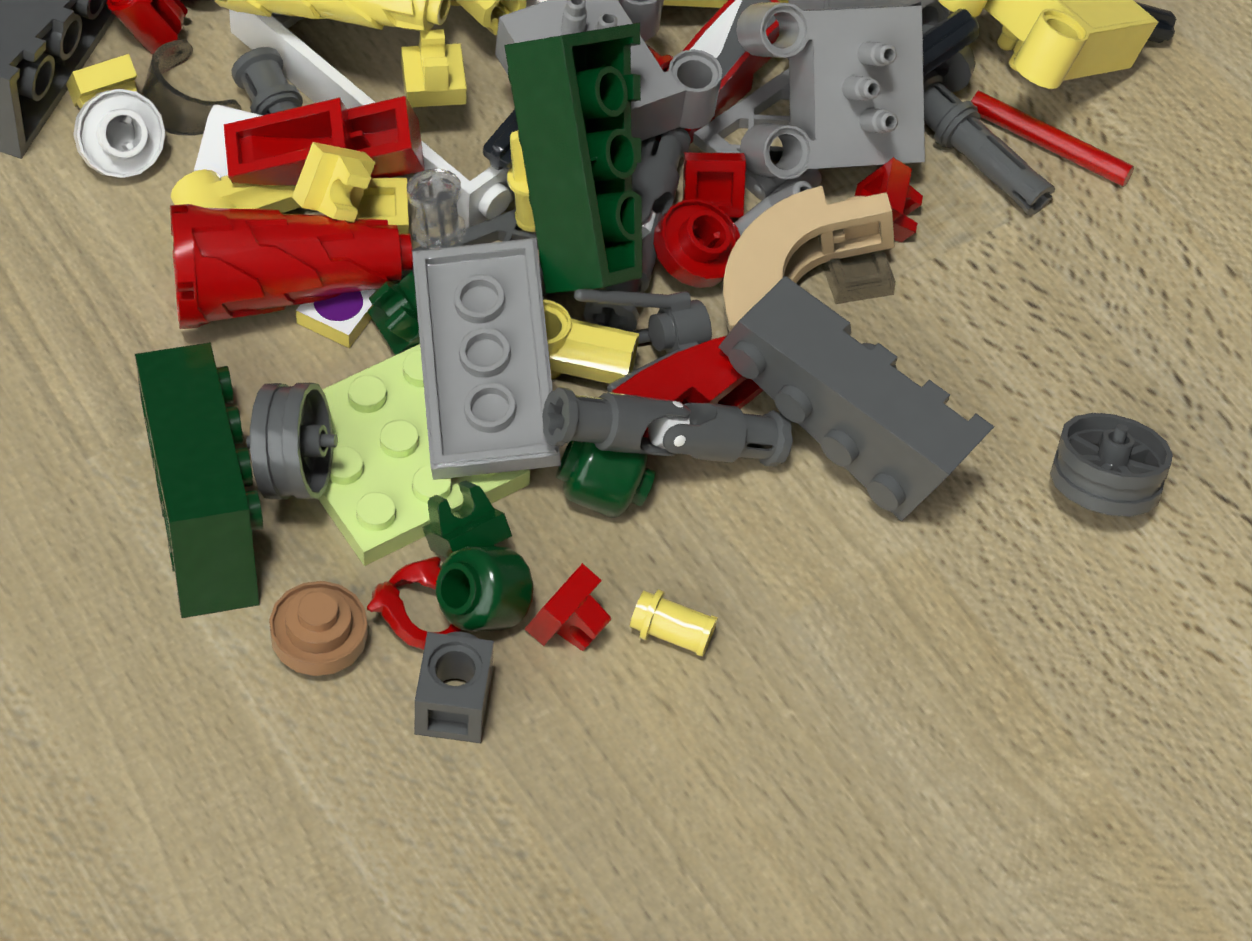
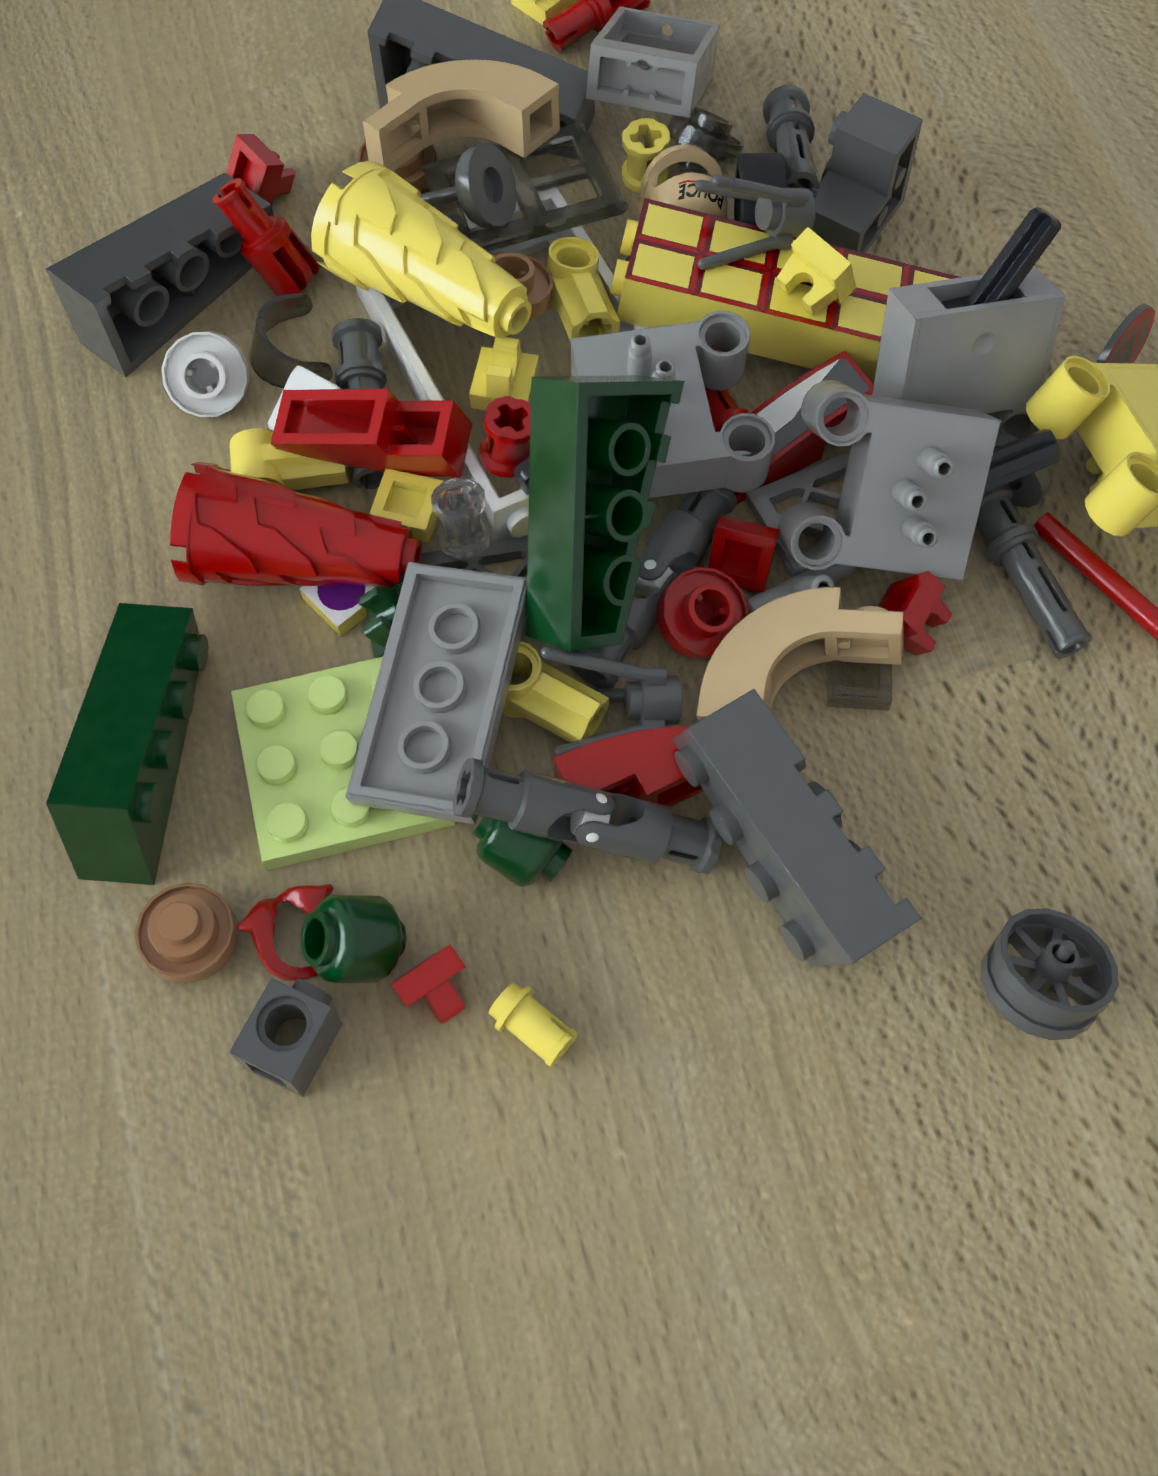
camera: 25 degrees right, 10 degrees up
(101, 77) = (222, 317): light yellow tile -> none
(291, 441) = (212, 737): dark grey wheel -> none
(333, 181) = (357, 473): light yellow tile -> none
(464, 121) = (507, 436): none -> red bush
(471, 525) = (365, 865): dark green tile -> none

